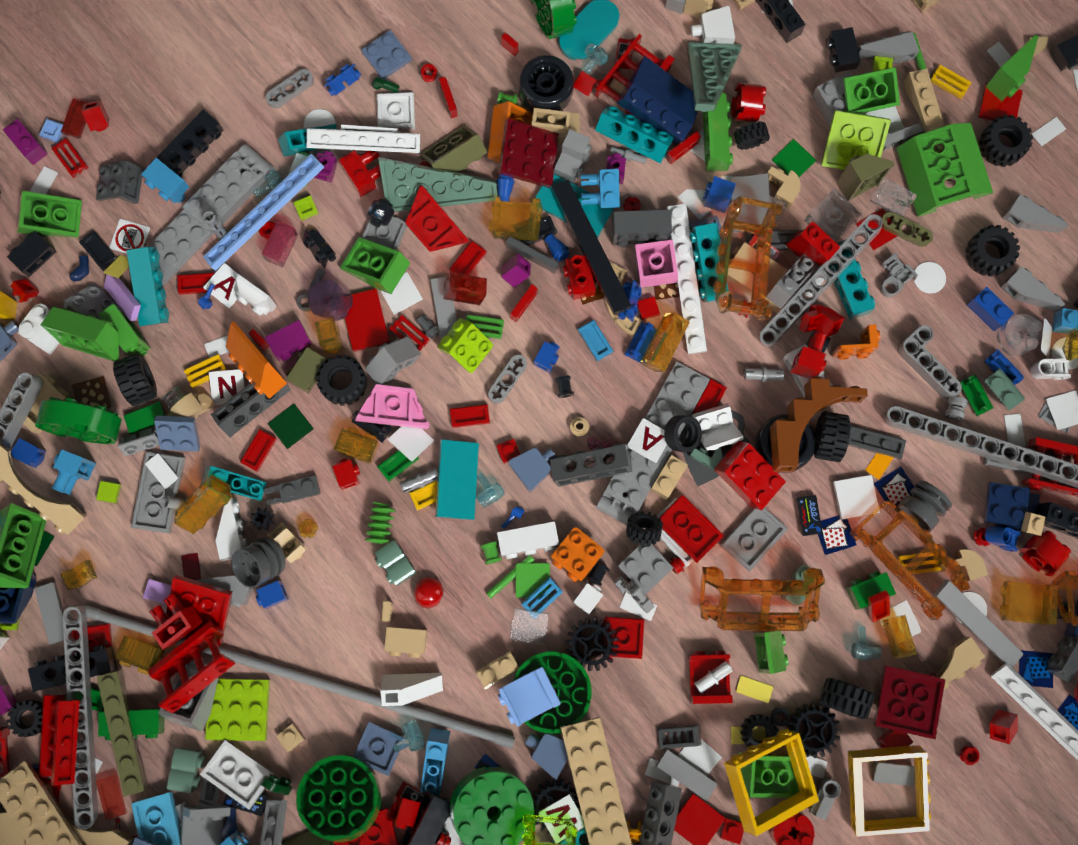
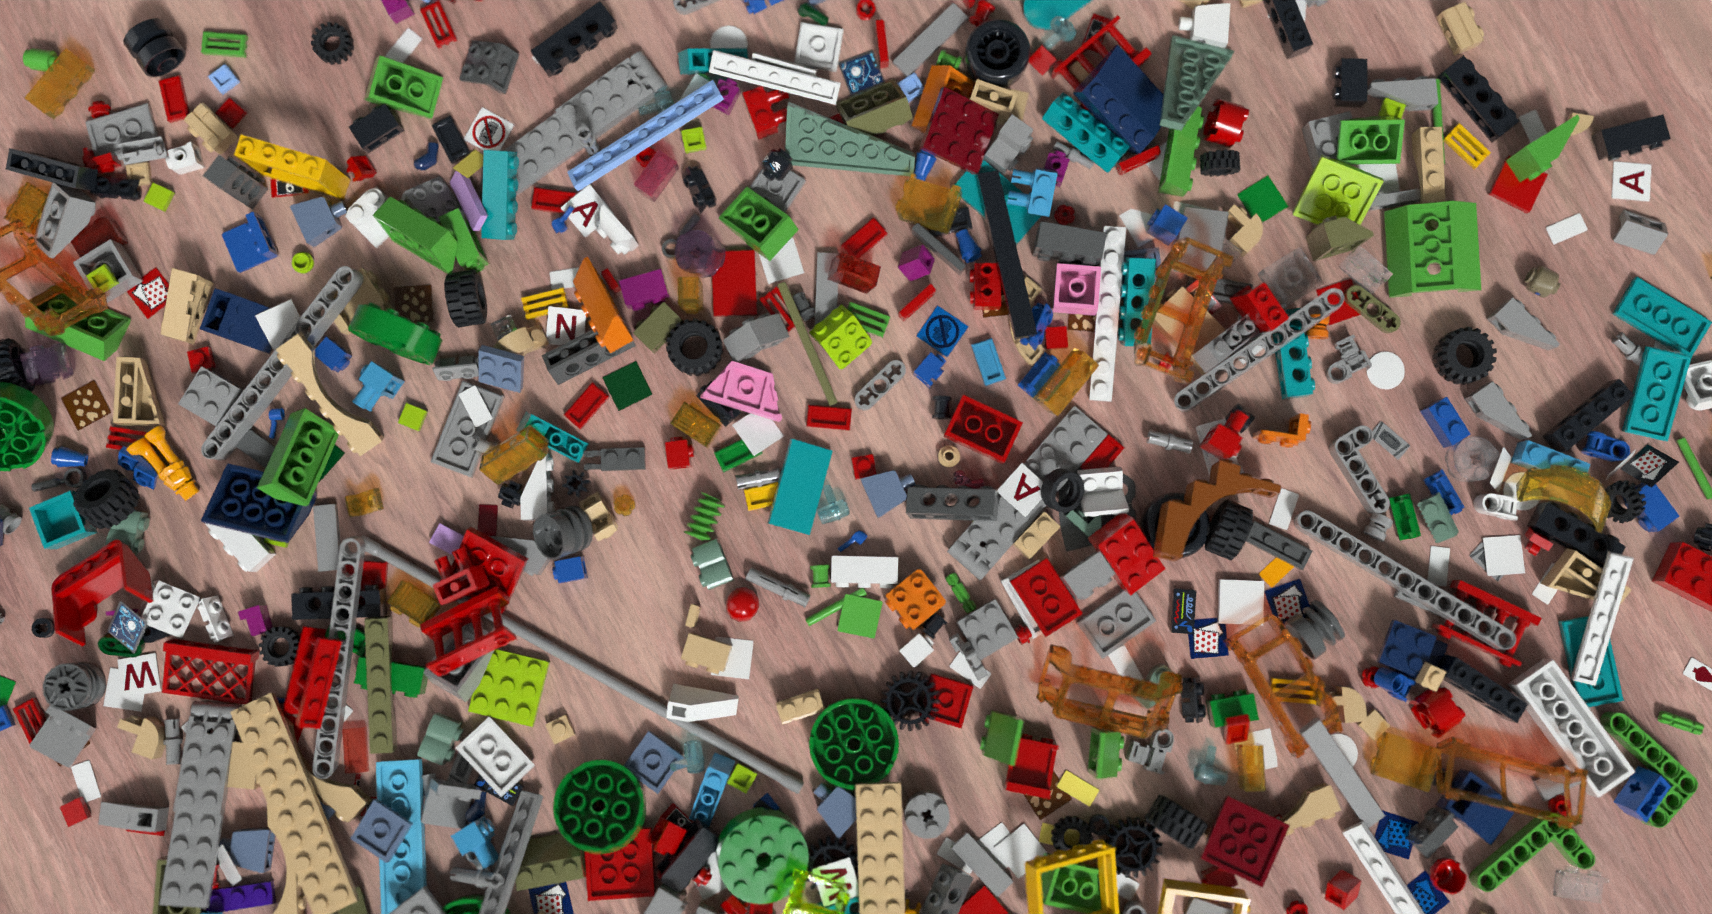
camera: 15 degrees right, 5 degrees up
(143, 417) = (467, 342): green tile -> none
(166, 181) = (542, 78): dark azure brick -> none
(206, 540) = (510, 494): none -> black gear
(276, 784) = (536, 777): dark green plate -> none
(432, 224) = (833, 190): red wing -> none
(435, 353) = (807, 344): none -> olive tile
(436, 124) = (861, 72): none -> sticker
(436, 641) = (739, 659): none -> white sticker
(460, 745) = (742, 778): none -> lime plate
(463, 572) = (778, 587): none -> light grey pin
(481, 127) = (911, 87): none -> light blue tile
(488, 87) = (930, 40): none -> light grey tile
(526, 55) = (982, 13): none -> red bush
(528, 696) = (827, 743): light blue panel -> none
(529, 626) = (845, 666): clear piece -> none
(550, 323) = (942, 331): none -> clear blue sticker
(553, 586) = (877, 621): dark azure tile -> none
(603, 397) = (983, 429): none -> red brick
(615, 541) = (960, 592): none -> bright green axle
(635, 750) = (931, 826): none -> light grey brick
(652, 530) = (992, 595): black tyre -> none
(679, 657) = (1001, 737): none -> bright green slope
(696, 734) = (1002, 828): dark grey slope -> none
(713, 677) = (1035, 765): white axle -> none
(715, 753) = (1019, 848): none -> white sticker
(720, 501) = (1087, 575): none -> light grey brick
(730, 710) = (1043, 806): none -> reddish brown sticker
(768, 570) = (1124, 663): none -> white sticker
(814, 646) = (1152, 756): none -> light grey piece
(822, 319) = (1250, 393): red brick -> none
(838, 596) = (1194, 708): none -> black hinge
(866, 255) = (1320, 330): none -> orange wheel
(873, 411) = (1284, 509): none -> white sticker
(948, 334) = (1390, 440): none -> sticker
(951, 50) = (1466, 97): none -> black brick
(995, 578) = (1374, 725): none -> tan tile
(1013, 129) = (1524, 218): black tyre -> none
(1040, 177) = (1542, 281): none -> dark tan head

